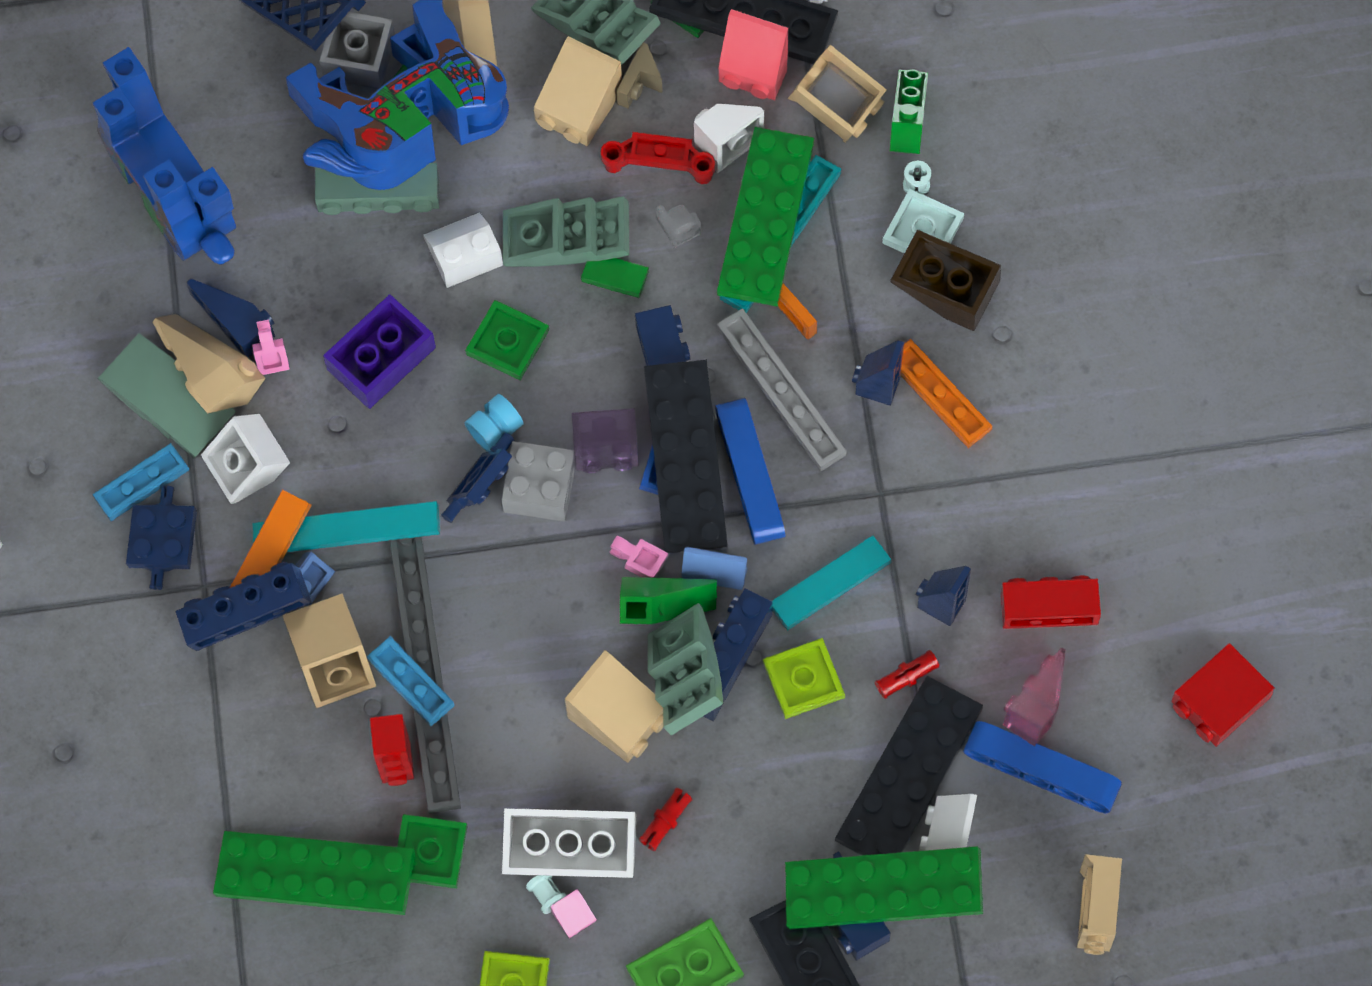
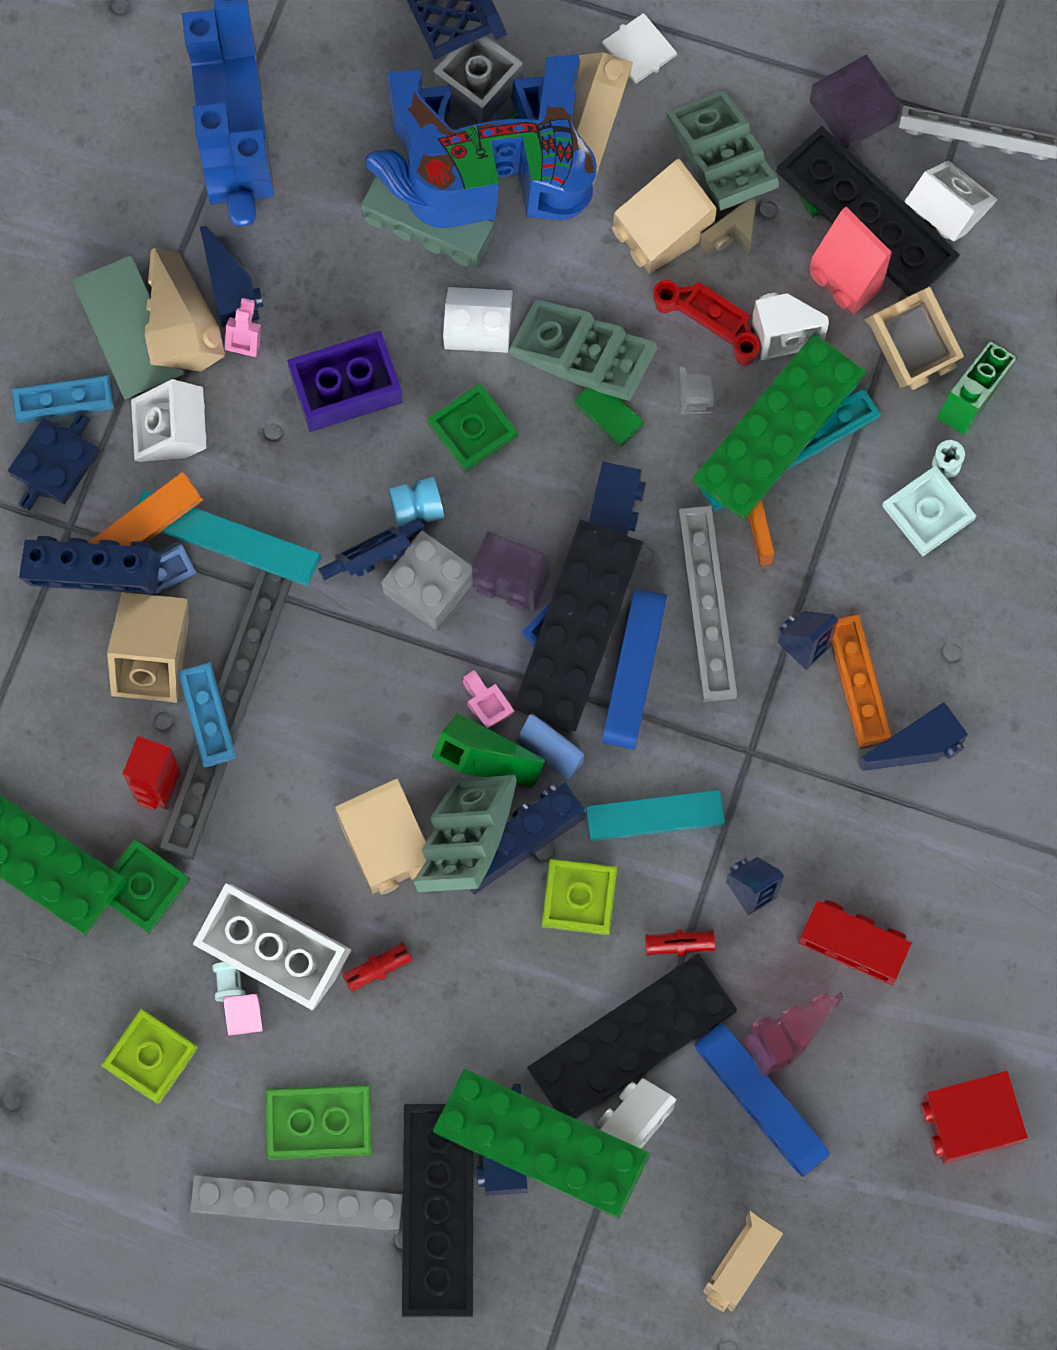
camera: 25 degrees right, 5 degrees up
(947, 279) = (923, 573): dark brown slope -> none
(1018, 415) = (923, 741): none -> dark blue slope

